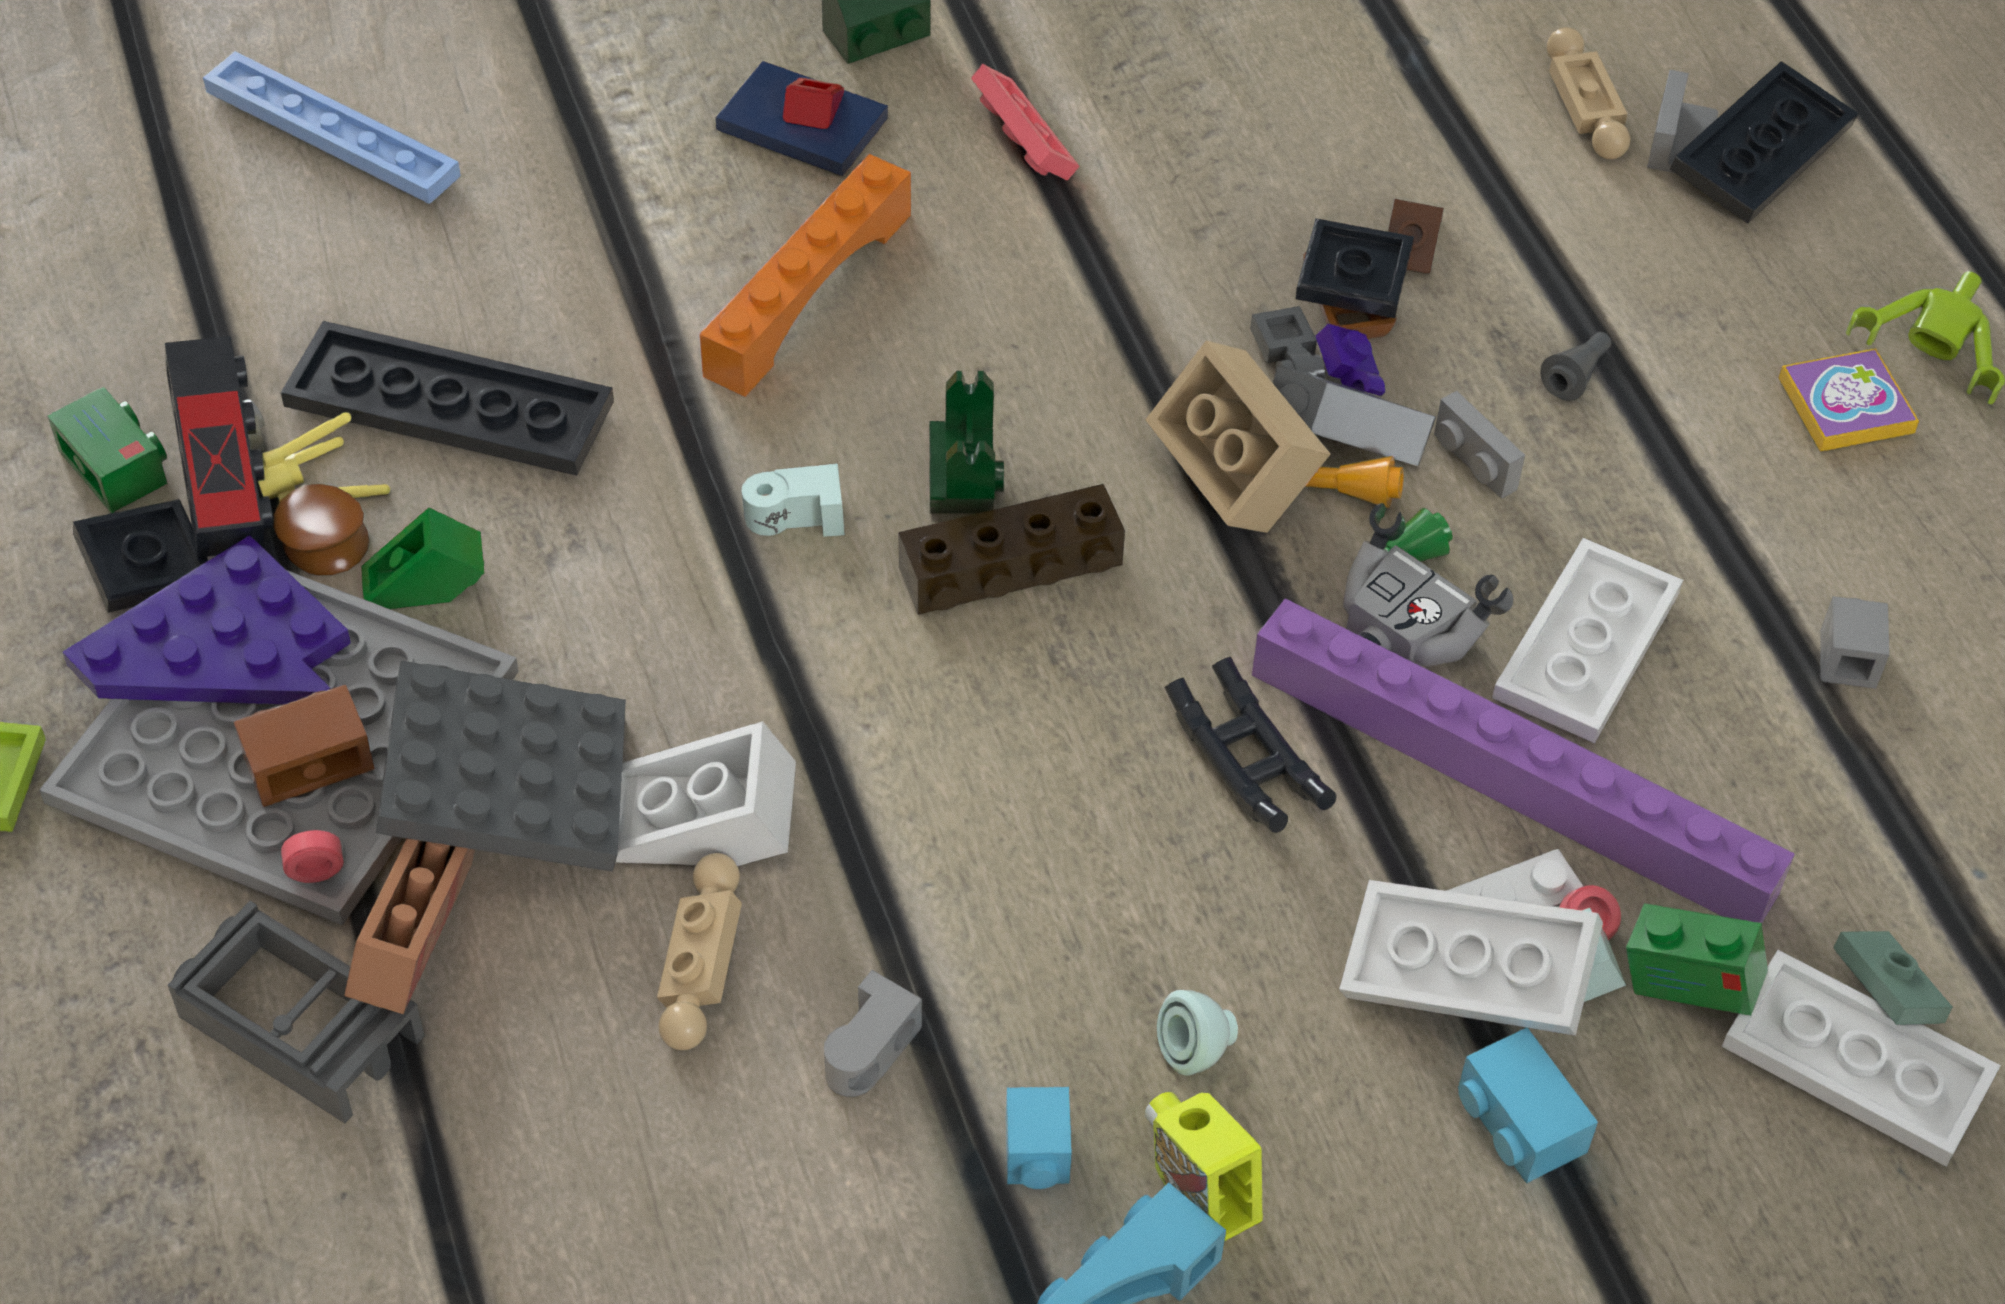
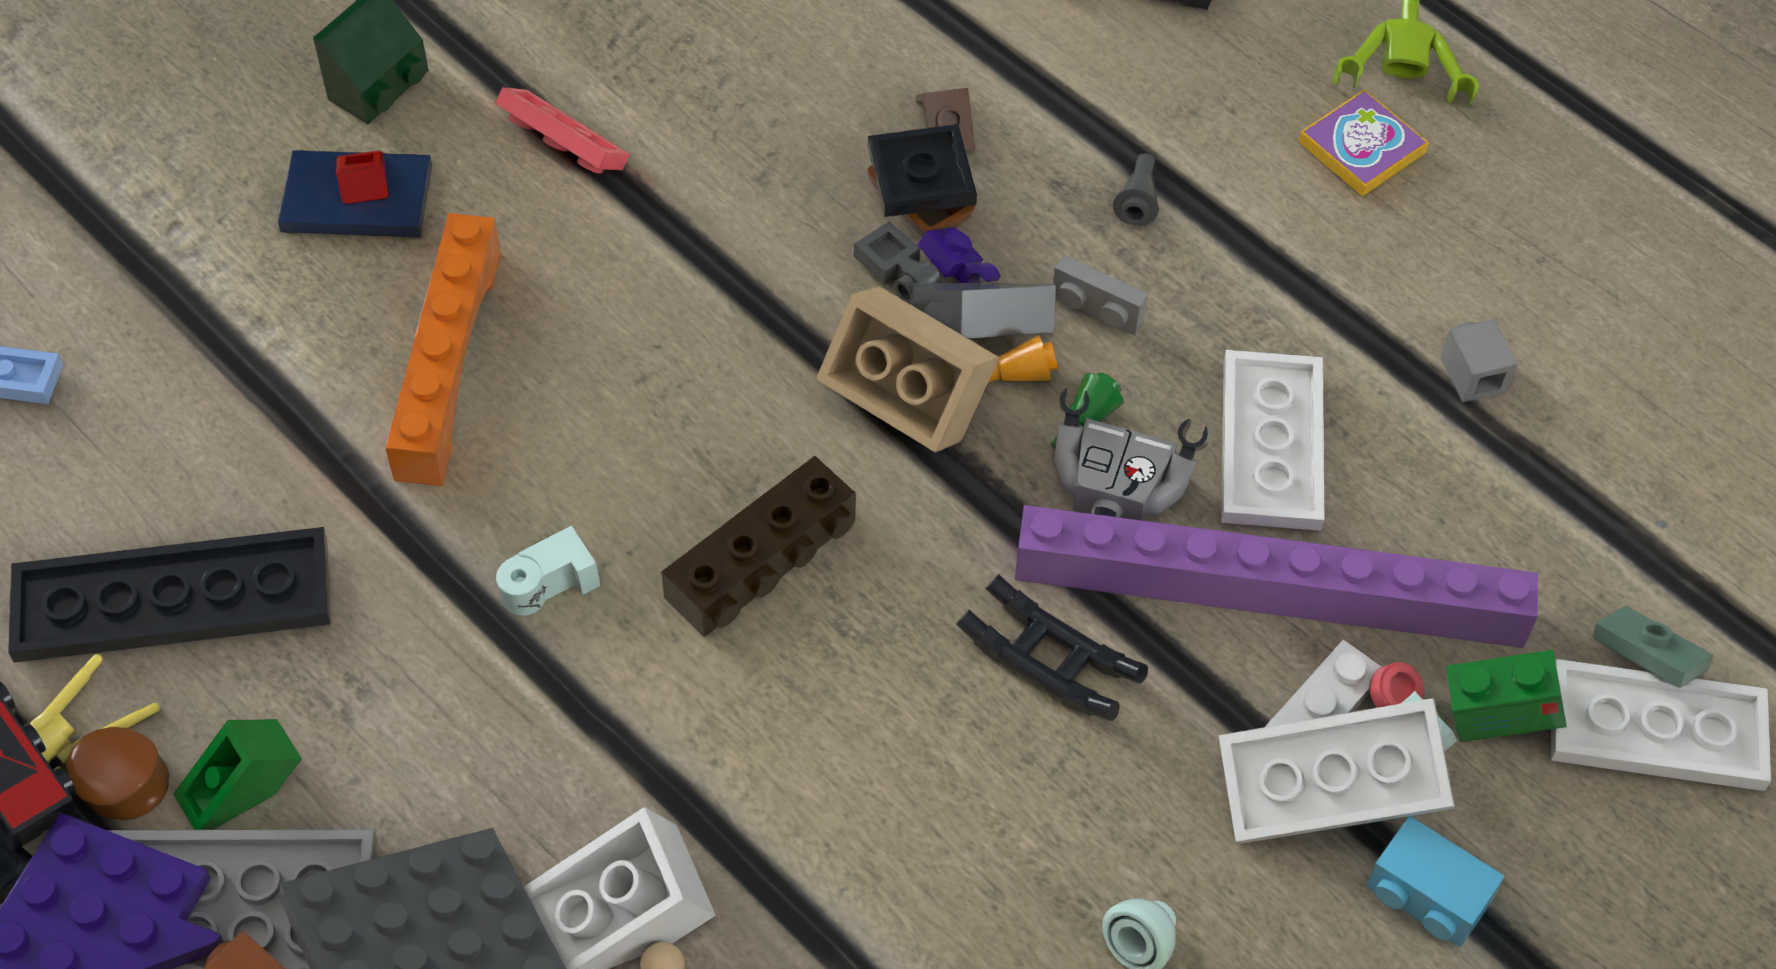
camera: 25 degrees left, 5 degrees up
(961, 450) = (675, 474): dark green piece -> none

